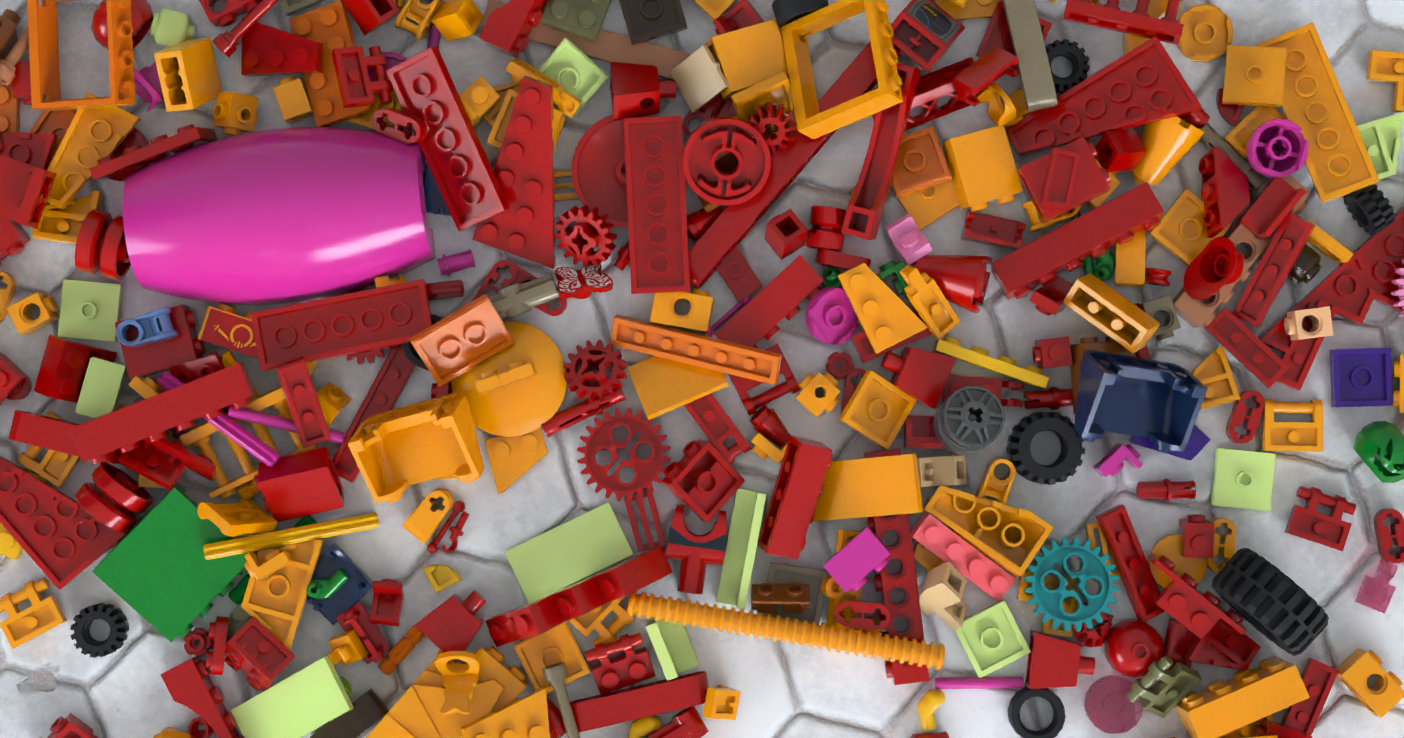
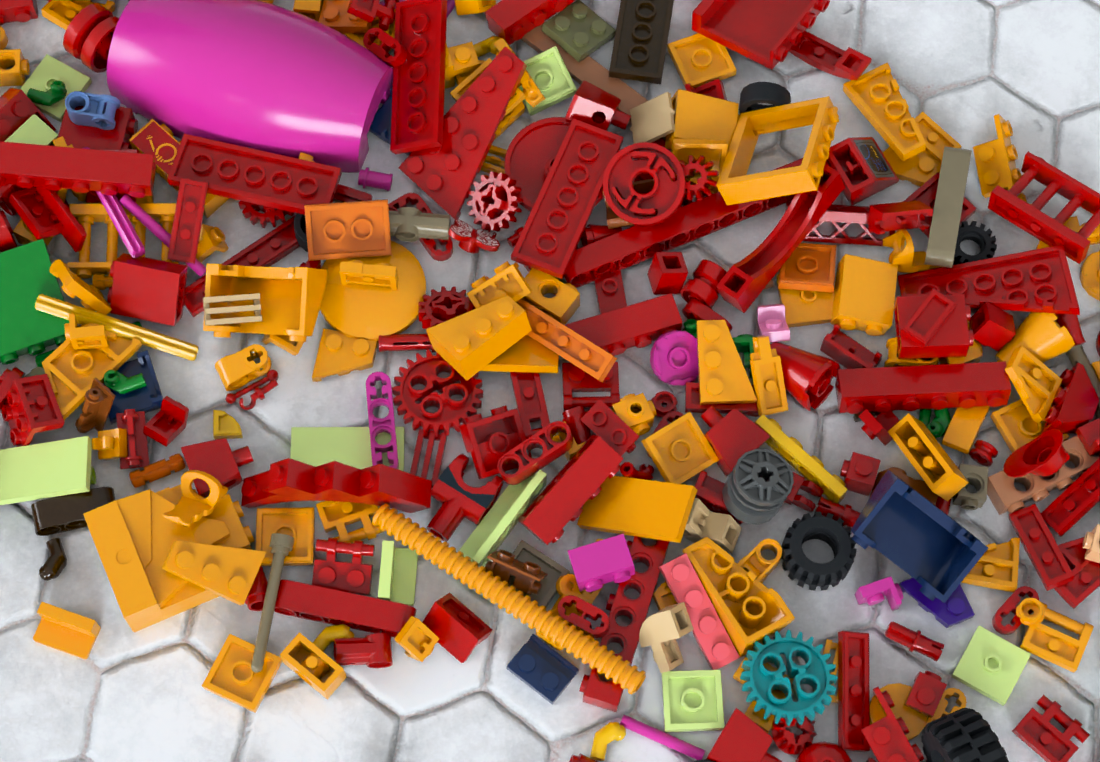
camera: 25 degrees right, 20 degrees down
(94, 326) = (49, 97): none -> green arm
(315, 622) = (95, 408): none -> dark orange hinge
(399, 482) = (256, 308): none -> tan tile
(491, 67) = (486, 46): none -> yellow arm
(592, 510) = (379, 425): none -> dark pink beam
(635, 332) = (505, 282): none -> light orange bracket
(641, 390) = (479, 335): none -> light orange wedge
(745, 494) = (543, 440): none -> red beam
(748, 669) = (456, 627): none -> red panel
(804, 421) = (610, 428): none -> red hinge
(843, 672) = (542, 669): none -> dark blue plate
(851, 447) = (628, 470): none -> red arm
(1180, 191) = (1033, 382): none -> light orange wing
(1270, 418) = (1034, 605): none -> light orange plate

